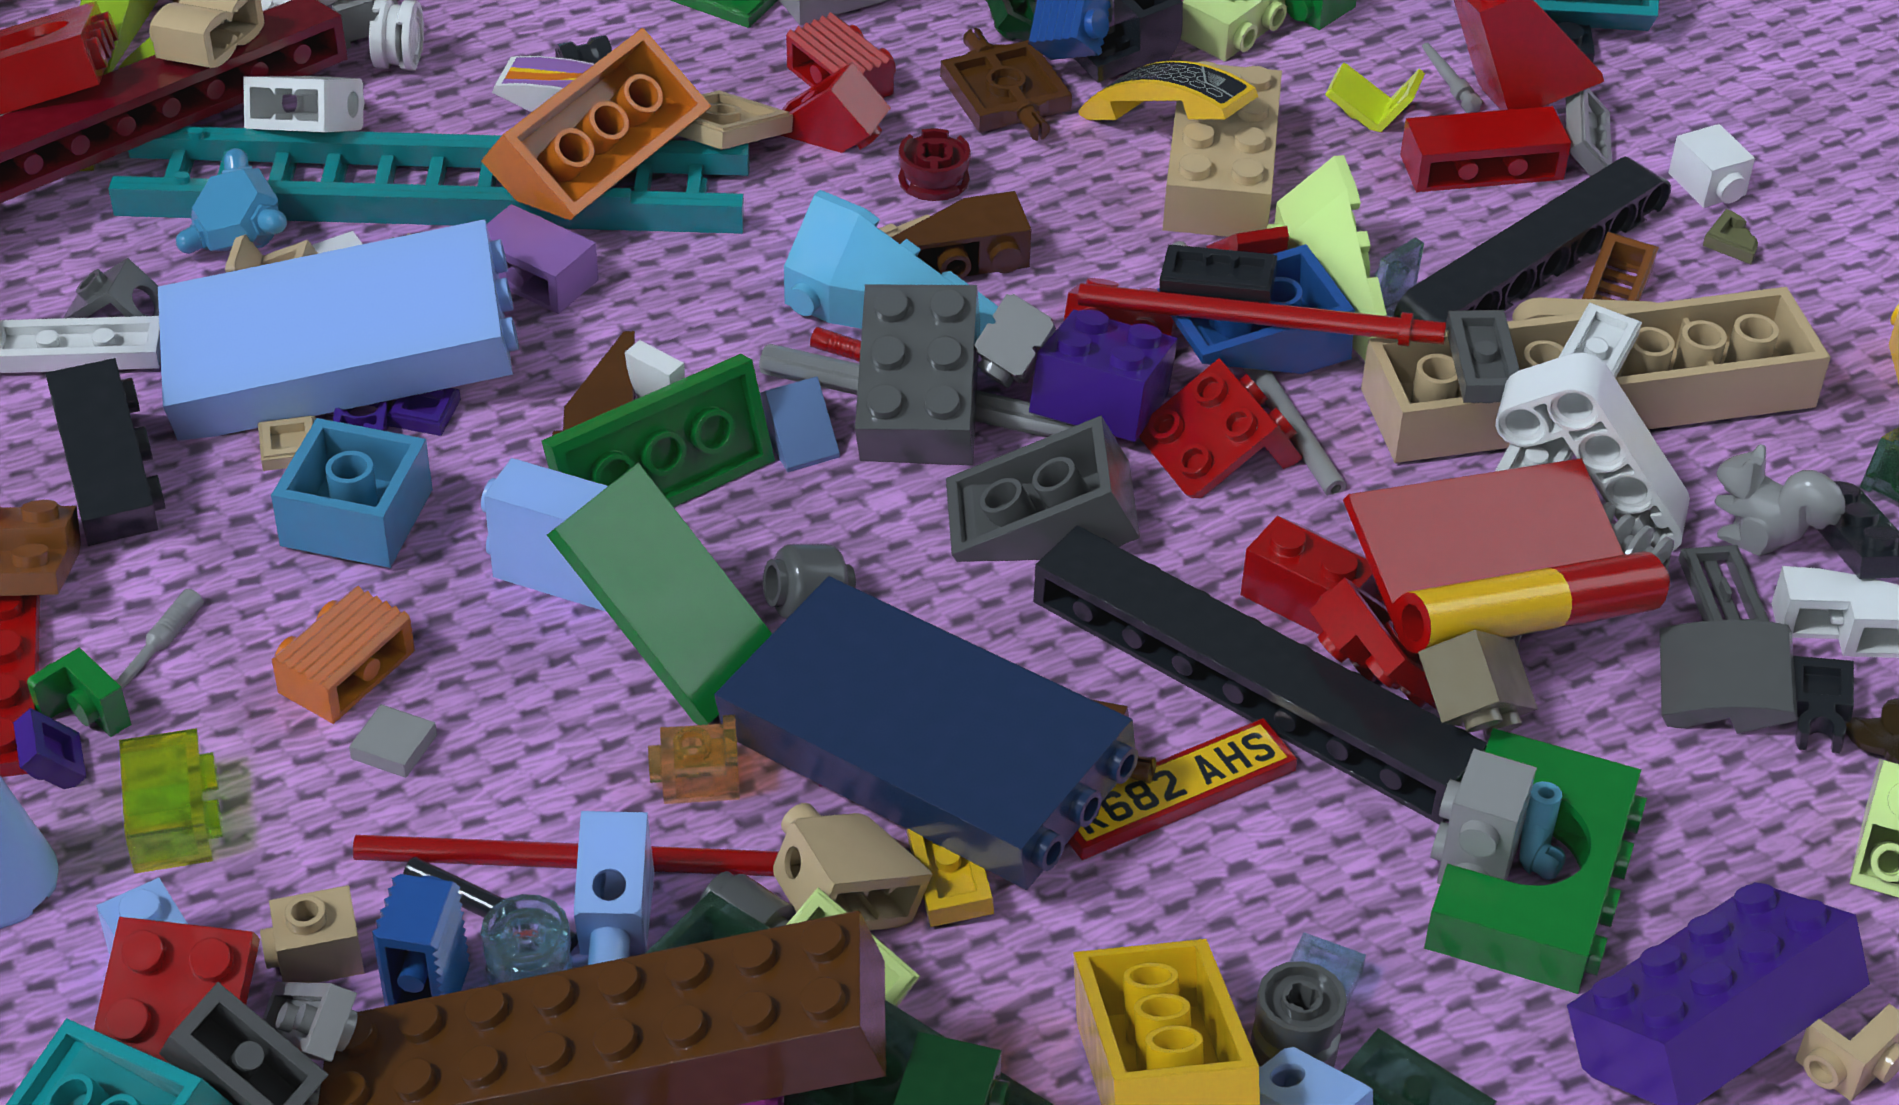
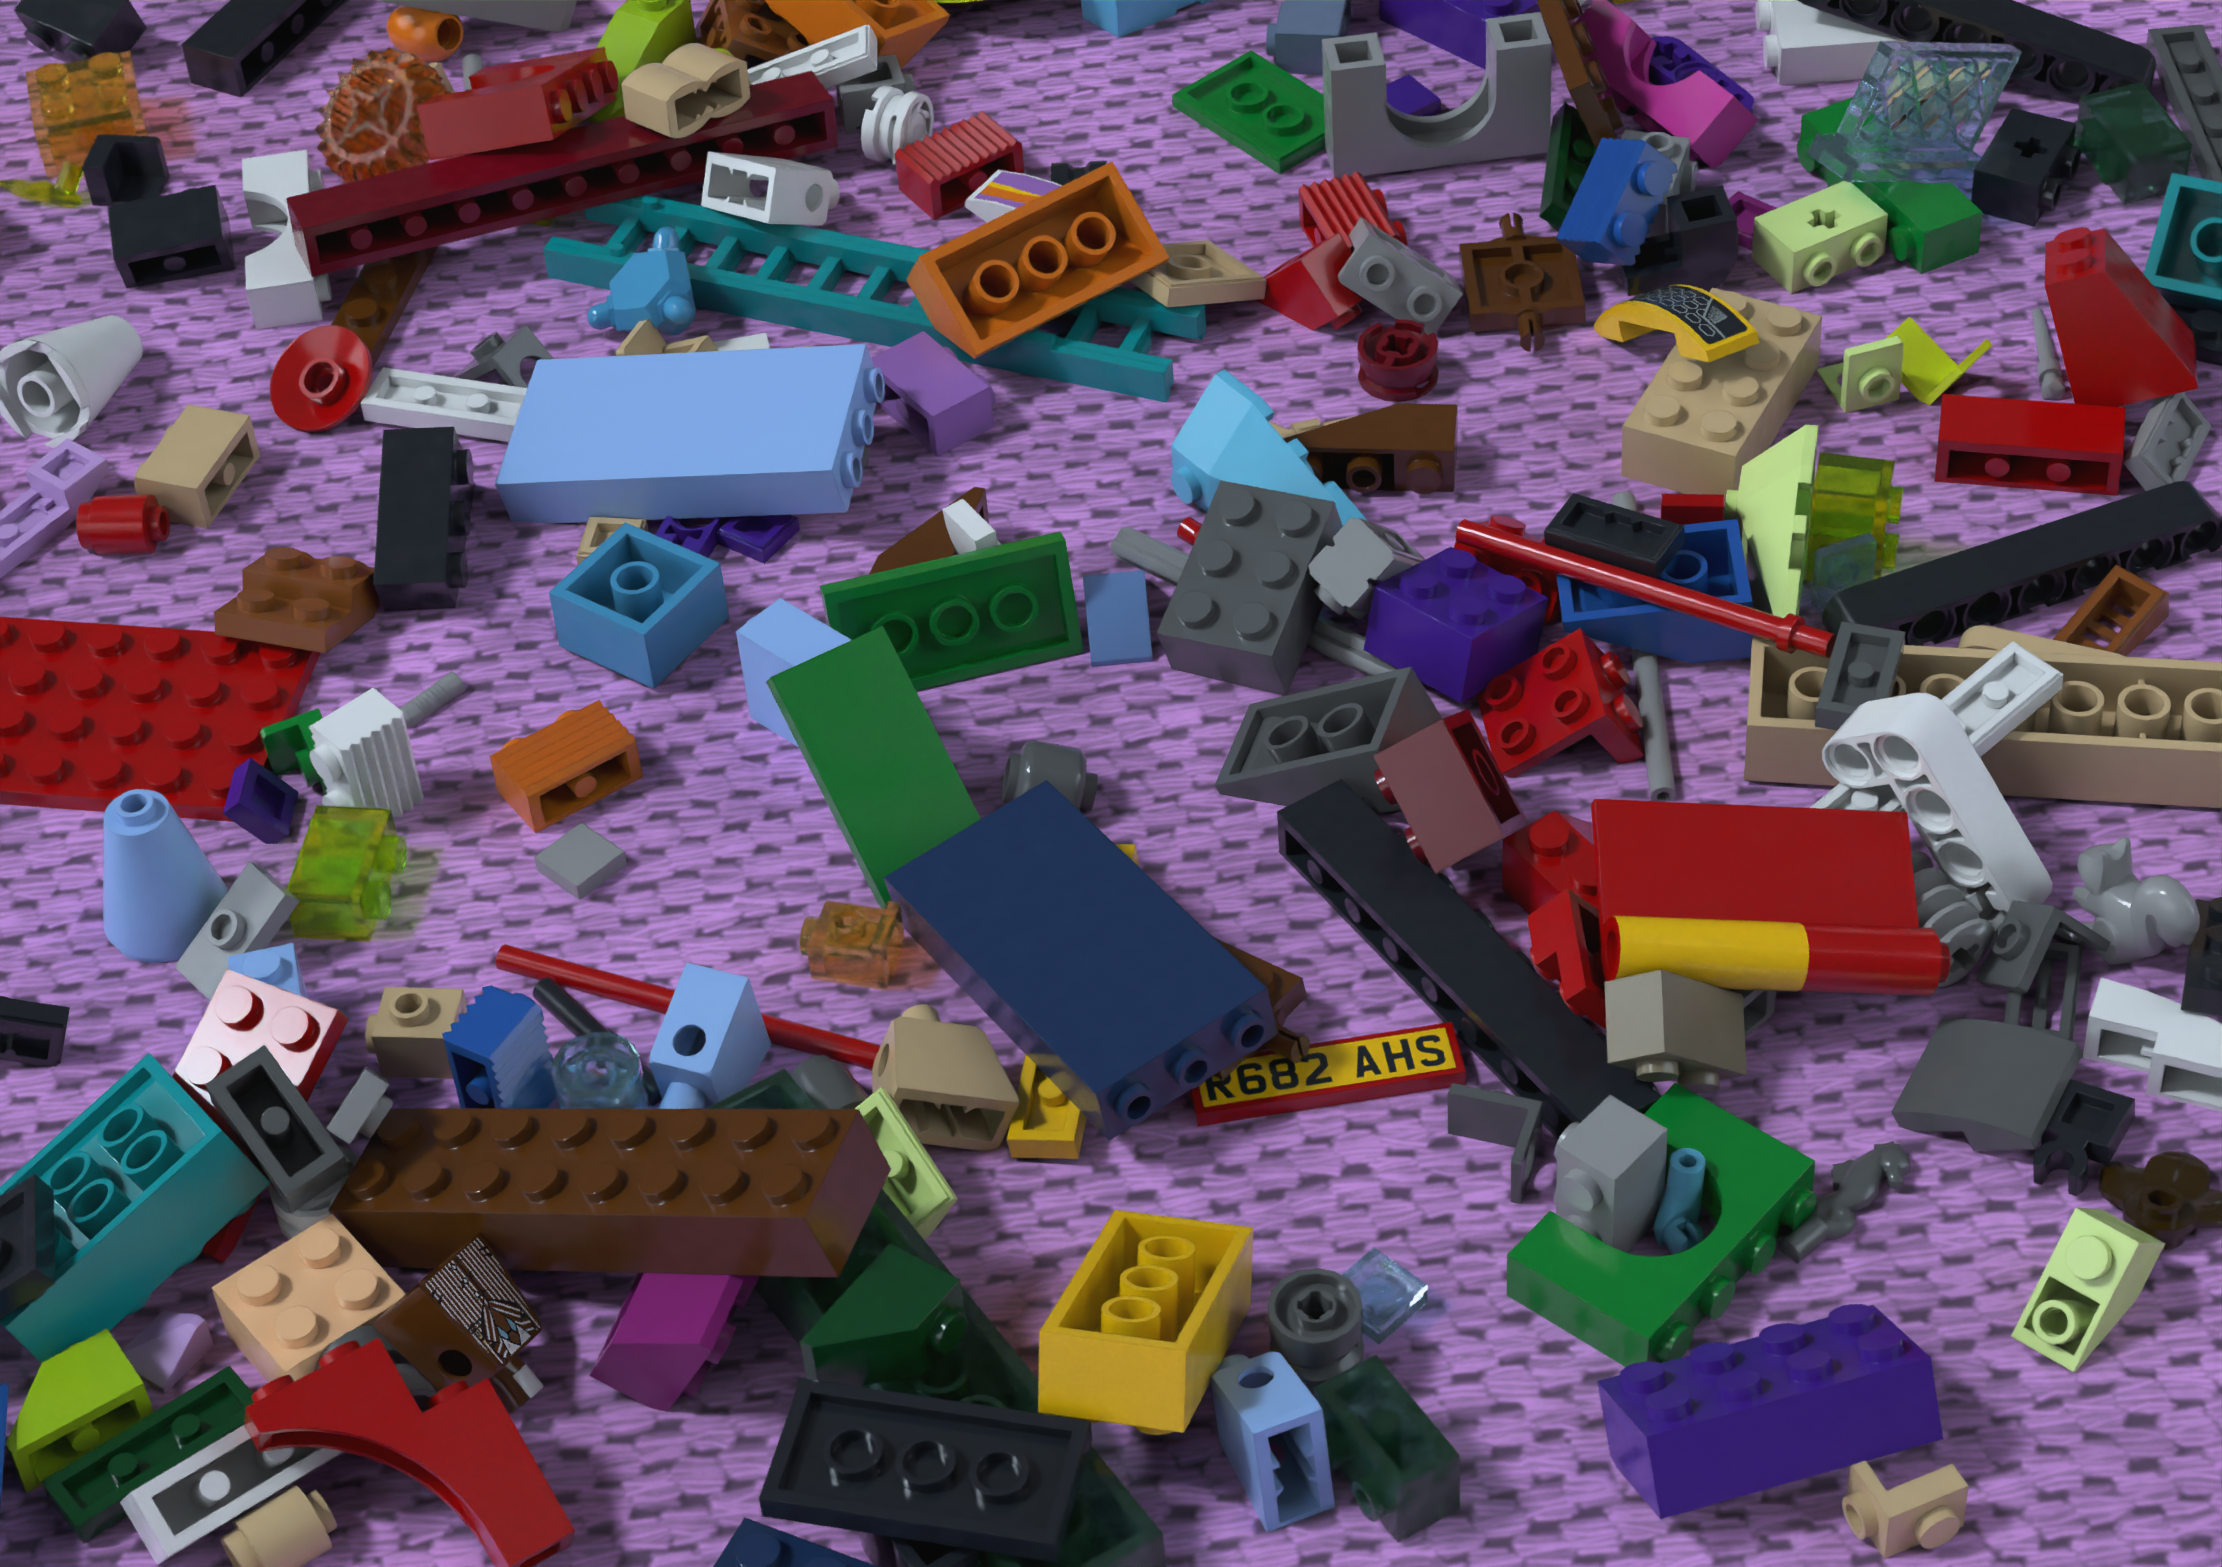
camera: 25 degrees right, 0 degrees up
(85, 874) = (240, 924): none -> light grey plate
(152, 681) = (366, 756): none -> white brick
(464, 59) = (955, 163): none -> red brick
(908, 95) = (1398, 278): none -> light grey bracket
(1190, 514) = (1448, 791): none -> dark red brick
(1333, 114) = (1869, 374): none -> yellowish green bracket
(1356, 795) = (1499, 1120): none -> dark grey bracket
(1393, 213) = (1853, 499): none -> clear neon green brick
(1665, 784) = (1855, 1188): none -> dark grey animal
(1702, 551) = (2023, 941): none -> dark grey bracket

